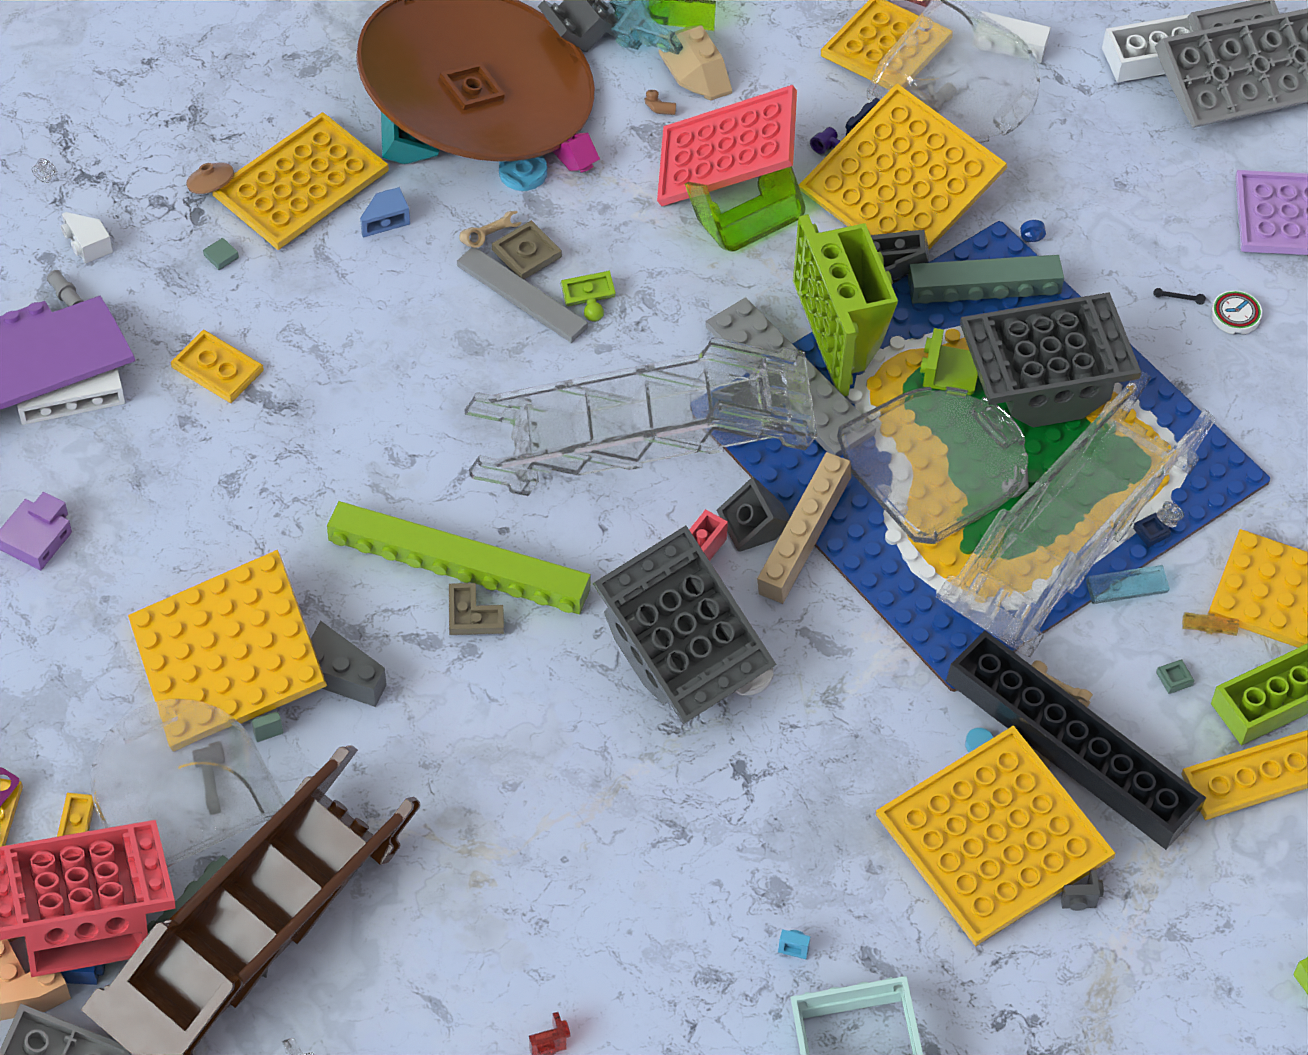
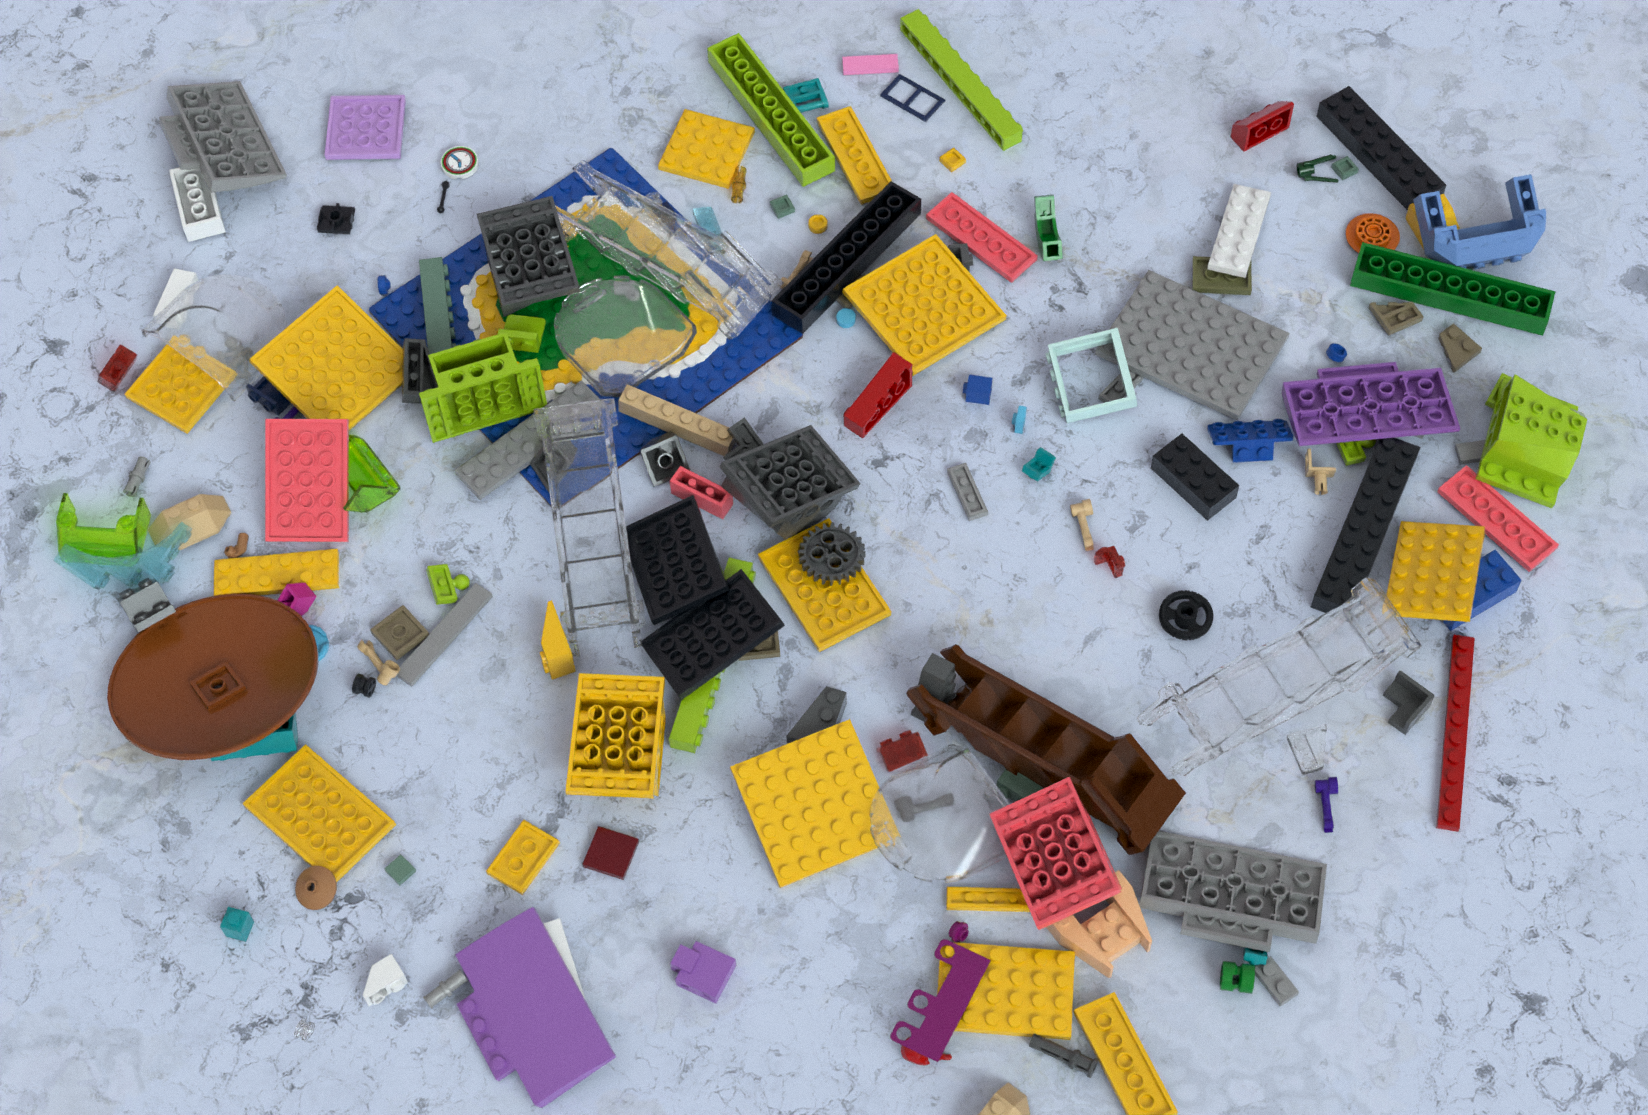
camera: 90 degrees left, 5 degrees up
(28, 801) = (958, 931): none -> magenta plate
(177, 110) = (237, 924): none -> teal brick
(206, 449) = (610, 853): none -> dark red tile
(267, 726) = (877, 769): sand green tile -> none
(291, 756) = (902, 750): none -> clear red bracket
(329, 439) = (617, 736): none -> yellow wedge
(367, 789) = (938, 679): none -> dark grey wedge
(385, 212) = (357, 741): medium blue slope -> none
(458, 216) = (364, 685): none -> black wheel
(471, 543) = (712, 635): none -> black plate
(482, 378) = (556, 653): none -> yellow slope
(548, 687) = (823, 610): none -> yellow plate
(563, 676) = (832, 553): none -> dark grey gear
(587, 511) = (674, 560): none -> black plate
(621, 141) = (273, 572): none -> yellow plate
(639, 1011) = (1082, 510): none -> tan brick
(682, 871) = (967, 491): none -> light grey tile
(713, 960) = (1039, 465): none -> teal bracket
(762, 12) = (136, 476): none -> light grey pin
(765, 602) = (744, 437): none -> dark grey panel
(838, 766) = (879, 395): none -> red wedge
(847, 894) = (978, 389): none -> blue brick
(1121, 924) = (982, 236): none -> coral plate
(1127, 1013) = (1046, 229): none -> green arch
(1134, 194) = (343, 219): none -> black piece
(1145, 718) = (817, 224): none -> yellow tile
(1269, 901) = (952, 159): none -> yellow tile

